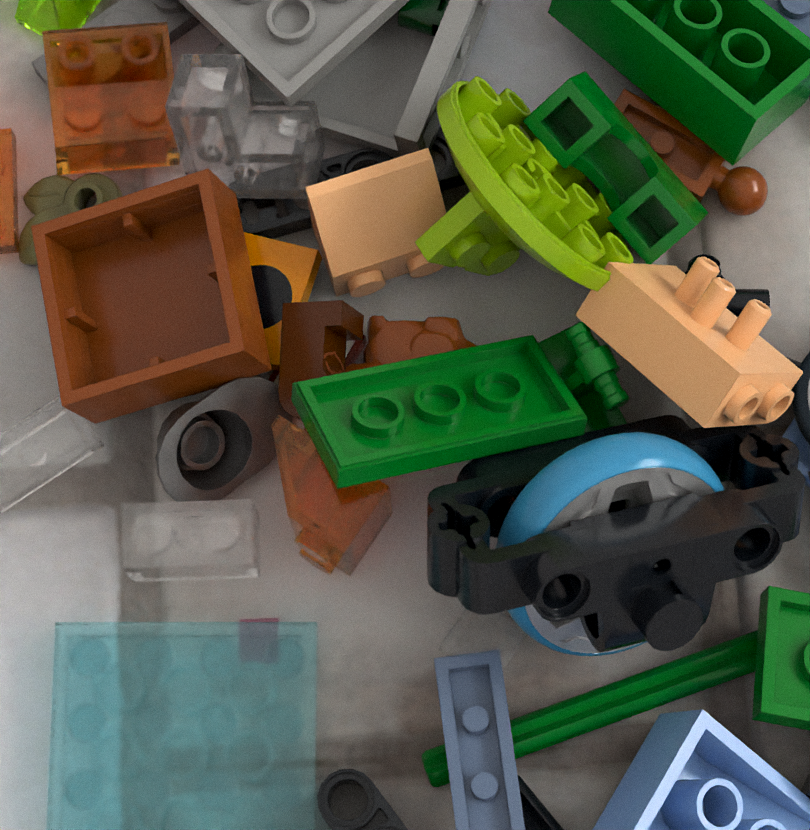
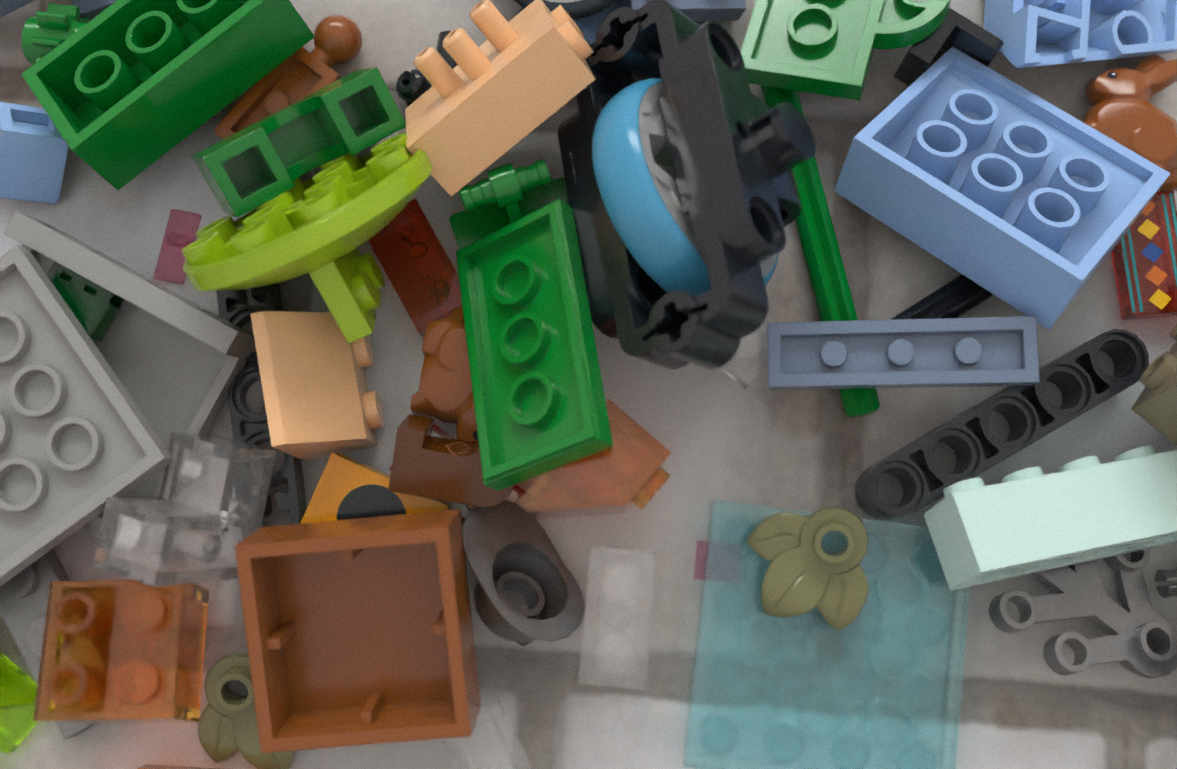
camera: 85 degrees left, 5 degrees up
(252, 715) = (806, 573): none -> olive plate
(516, 77) = (179, 233): none -> clear pink piece
(519, 304) = (417, 267): none -> clear red tile

